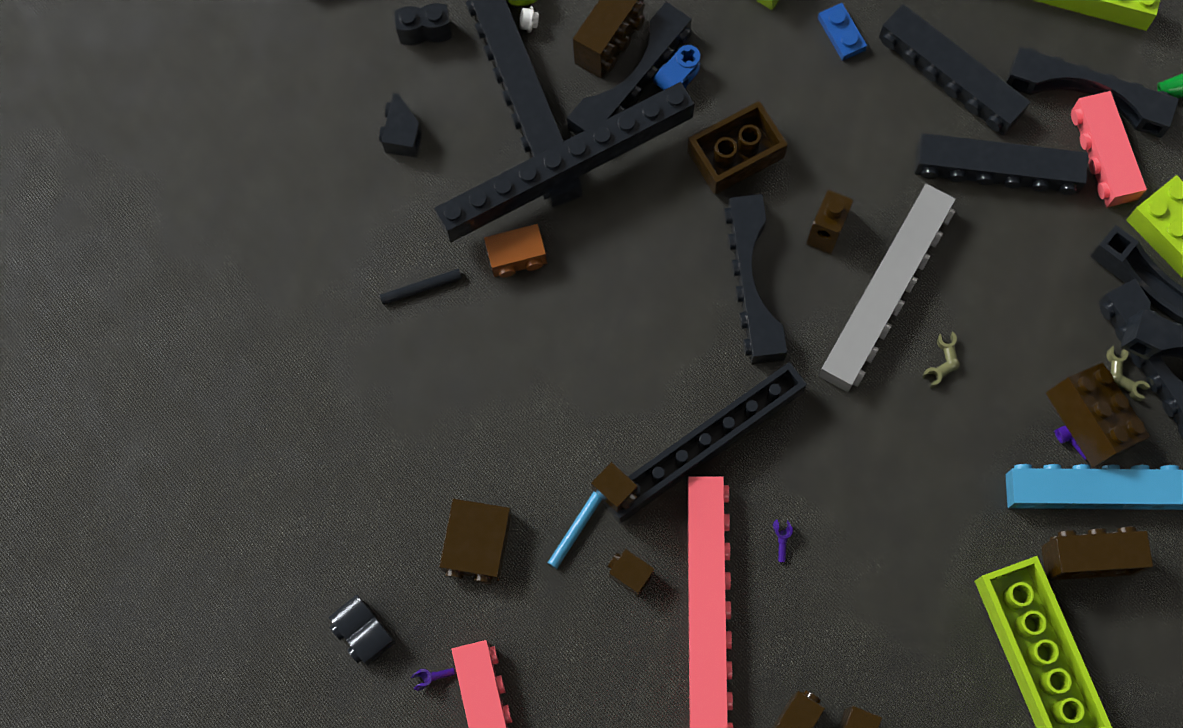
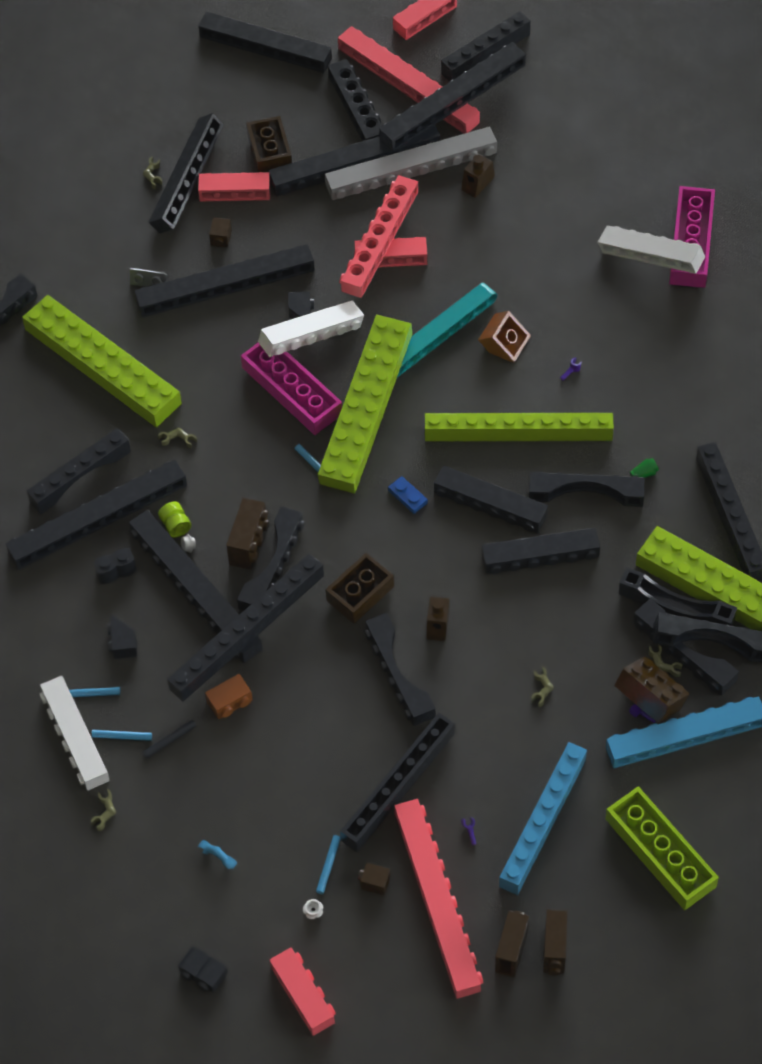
camera: 20 degrees left, 15 degrees down
(299, 242) = (74, 732): none -> white brick
(312, 366) = (110, 811): none -> olive arm
(339, 190) = (95, 692): none -> dark azure bar
(361, 262) = (122, 735): none -> dark azure bar
(428, 677) = (256, 986): dark purple hand -> none
(431, 469) = (226, 860): none -> dark azure arm
(475, 541) = (262, 889): dark brown brick -> none
(543, 587) = (313, 903): none -> white plate
(615, 488) = (347, 821): dark brown brick -> none
(677, 70) = (305, 544): blue piece -> none
(886, 288) = (489, 651): light grey brick -> none
(888, 556) = (542, 818): none -> dark azure brick
(1096, 554) = (677, 776): dark brown brick -> none
(1108, 149) = (609, 523): coral brick -> none

